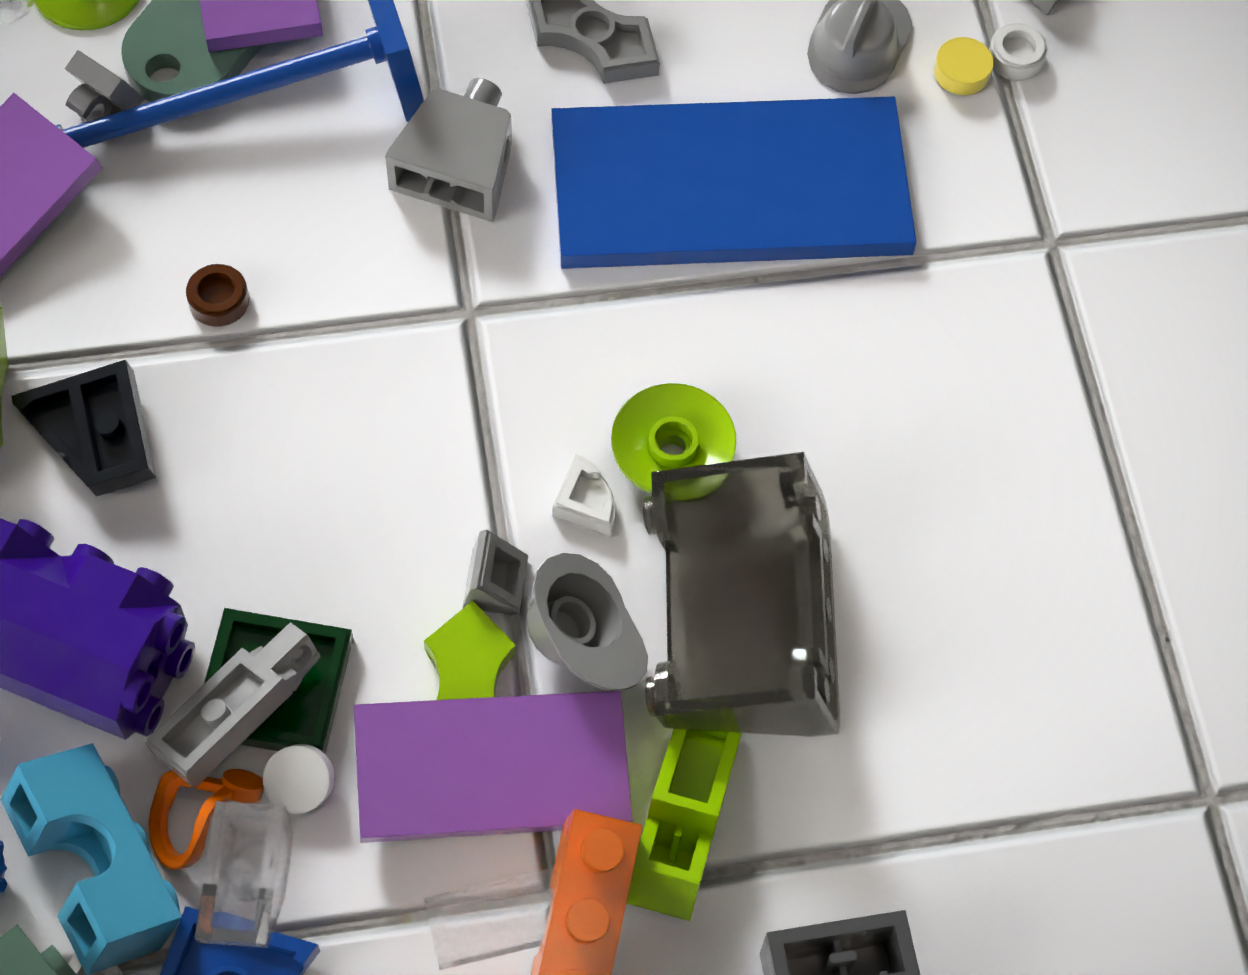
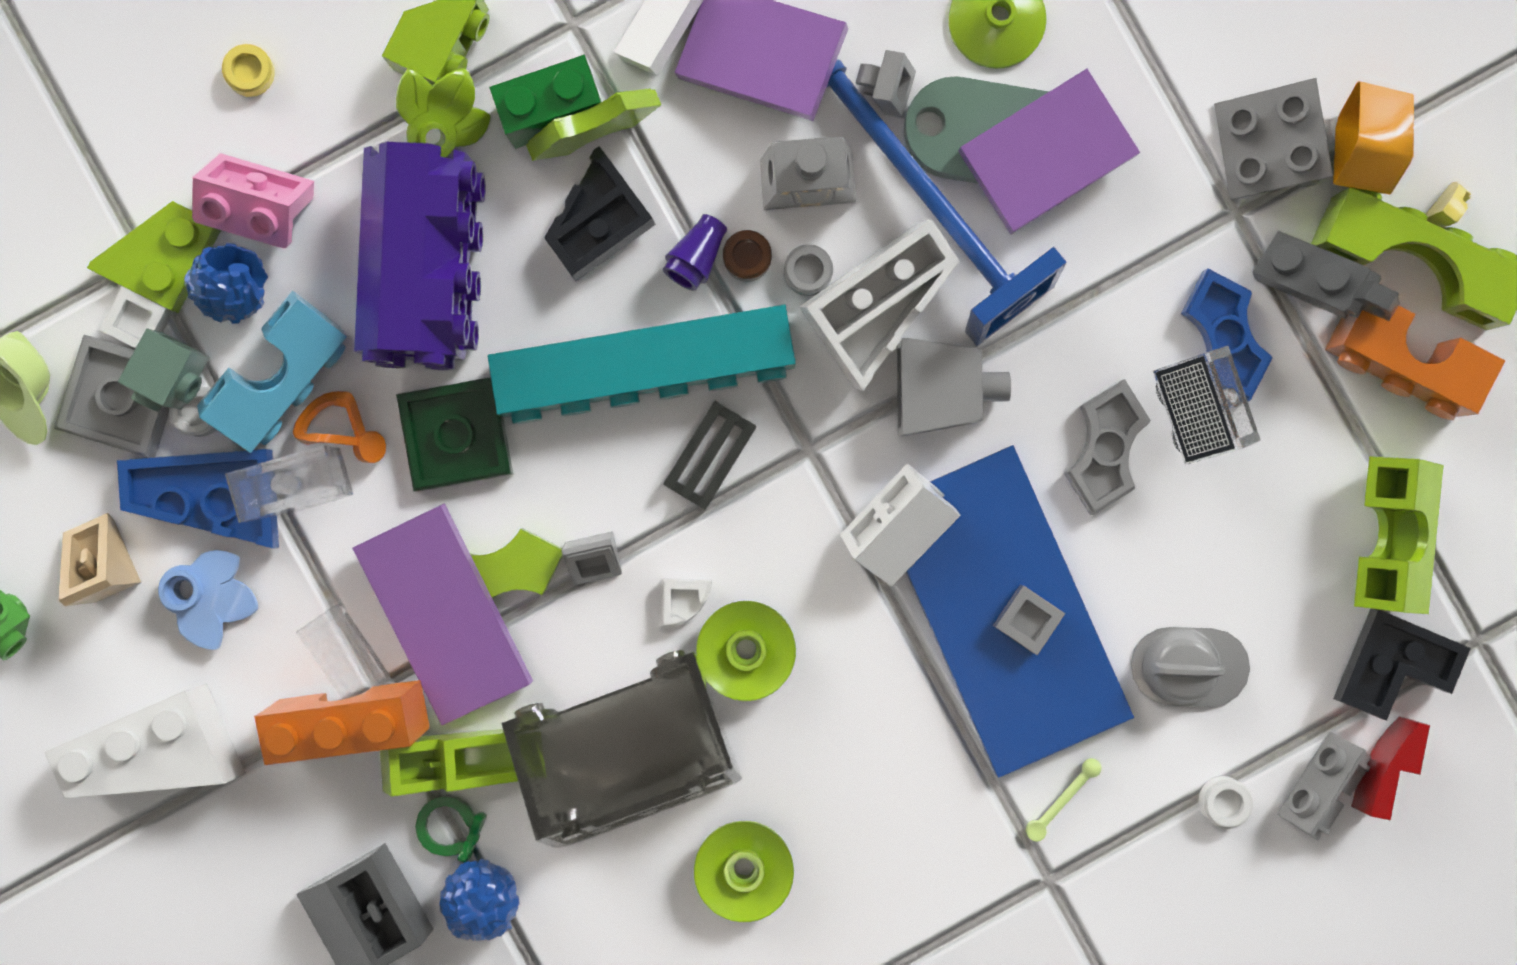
camera: 75 degrees right, 25 degrees up
(162, 174) = (807, 173): none -> light grey torso
(191, 342) = (694, 255): none -> dark purple cone
(232, 705) = (409, 420): light grey hinge -> none
(264, 241) = (808, 270): none -> light grey tile
(286, 438) = (642, 362): none -> teal brick
(298, 778) = (386, 484): white tile -> none
(333, 171) = (879, 299): none -> white wedge
(401, 373) = (731, 420): none -> pearl dark grey tile
(584, 623) = (563, 646): light grey piece -> none
(591, 233) = (899, 525): none -> white hinge
(749, 151) = (1028, 619): none -> light grey tile
(771, 831) = (461, 848): none -> green piece
(873, 847) = (479, 901): none -> blue piece
(939, 507) = (737, 895): none -> lime dish
(963, 66) = (1192, 762): light yellow tile -> none
(989, 231) = (1037, 828): none -> yellowish green hinge

